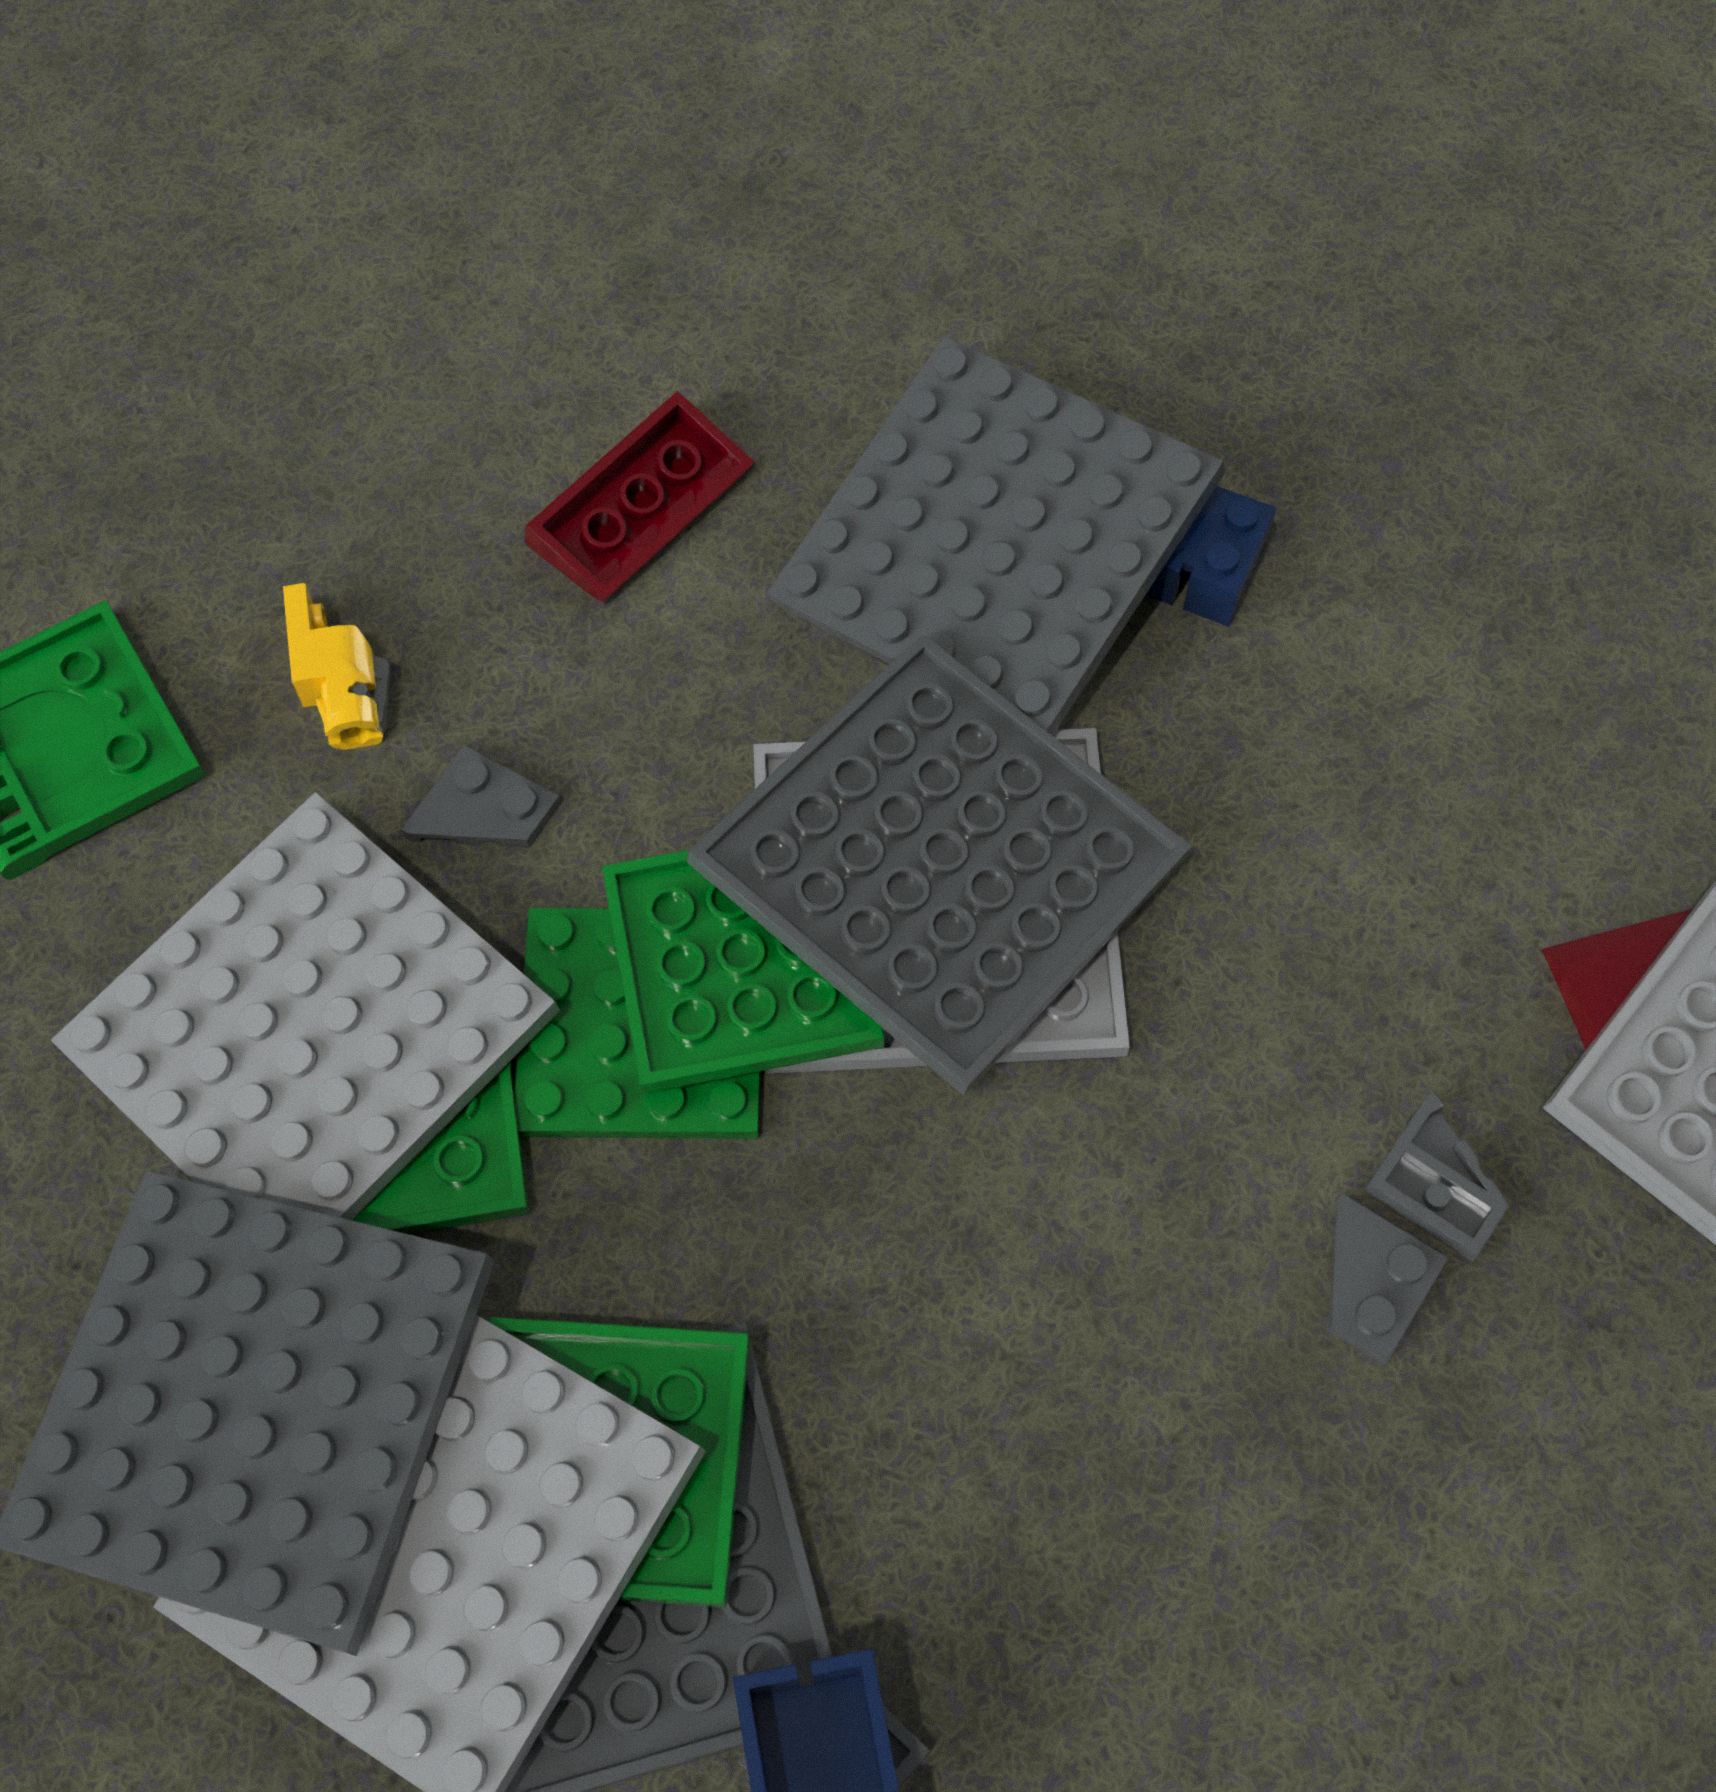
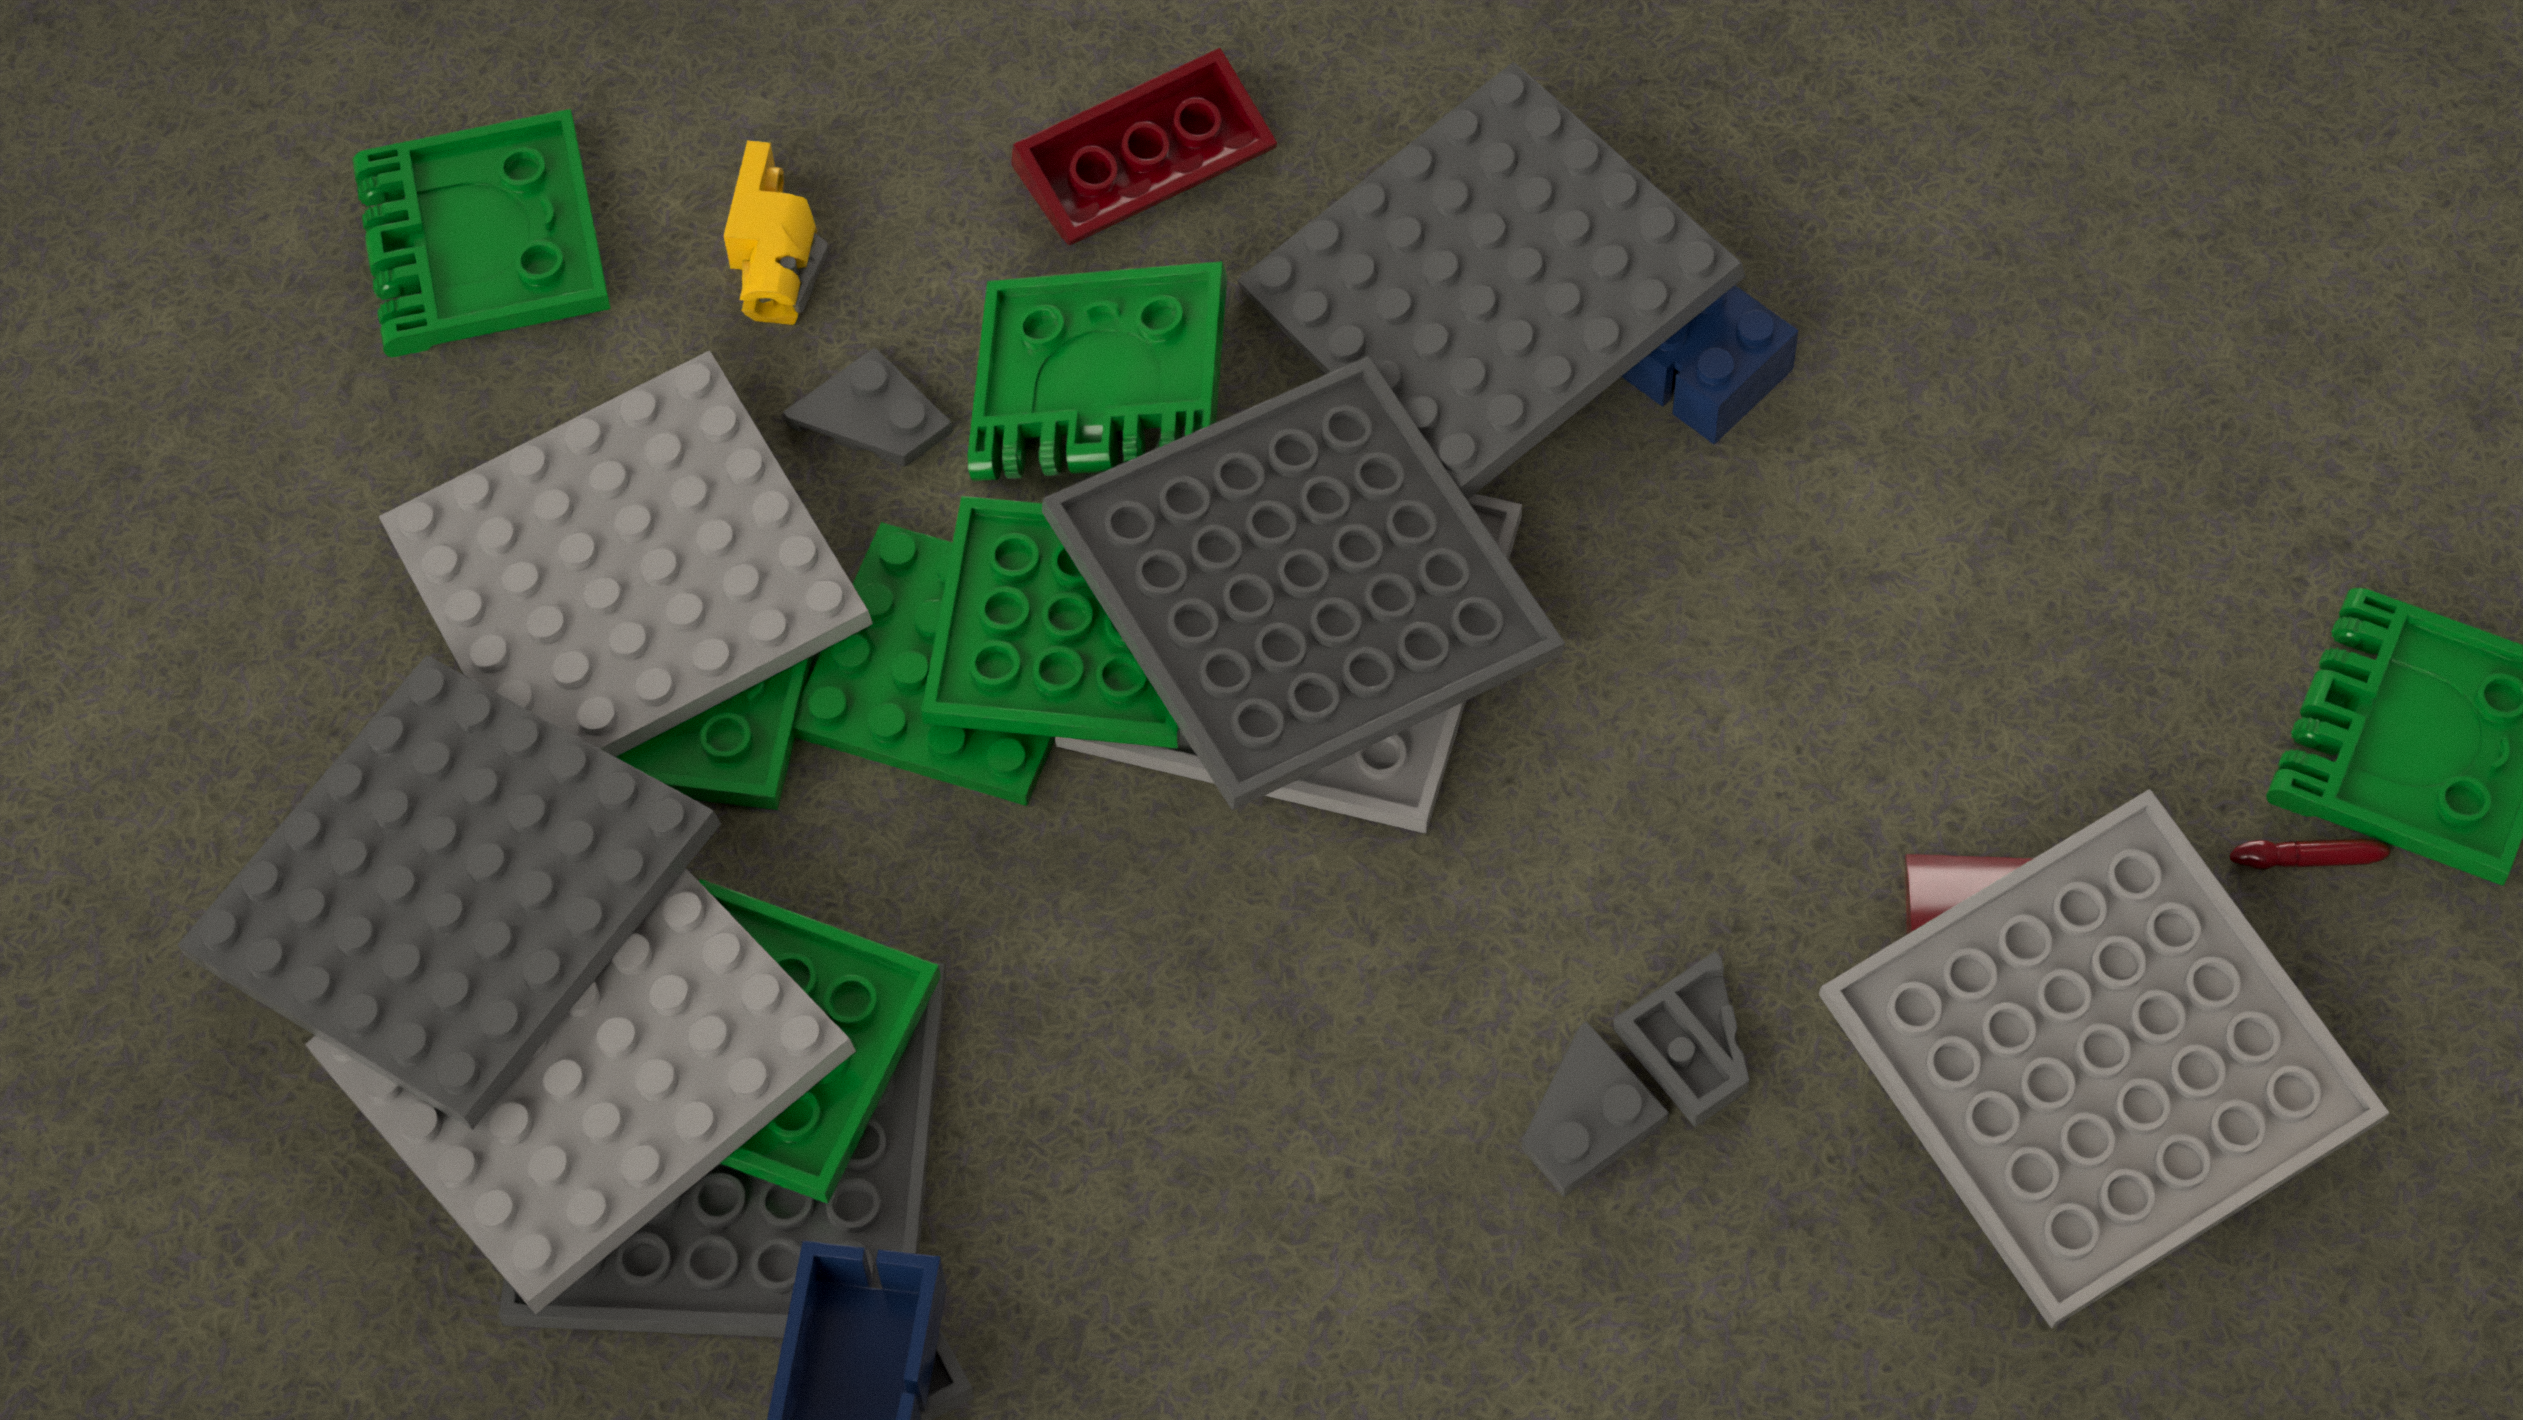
camera: 20 degrees right, 5 degrees down
(671, 705) = (1093, 361): none -> green hinge

